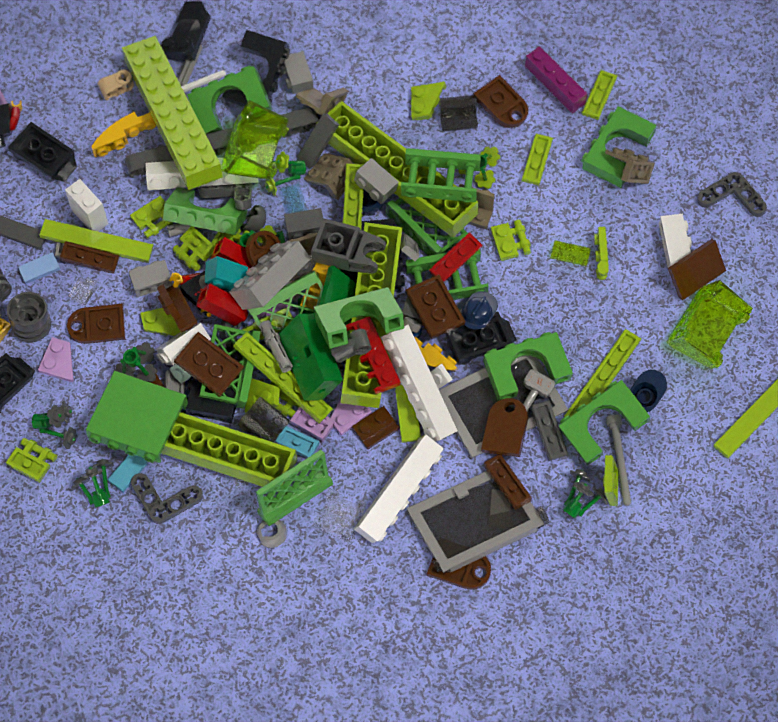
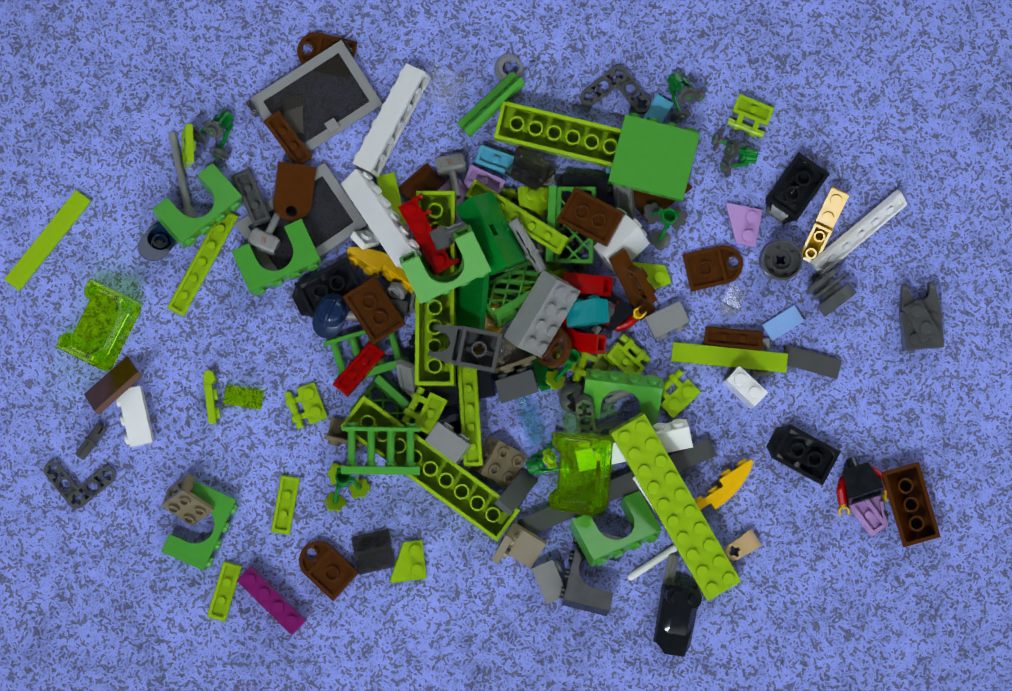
camera: 170 degrees right, 20 degrees up
(343, 441) = (451, 166): none -> light grey piece
(392, 209) = (430, 412): none -> lime plate
(721, 227) = (90, 441): none -> dark grey axle

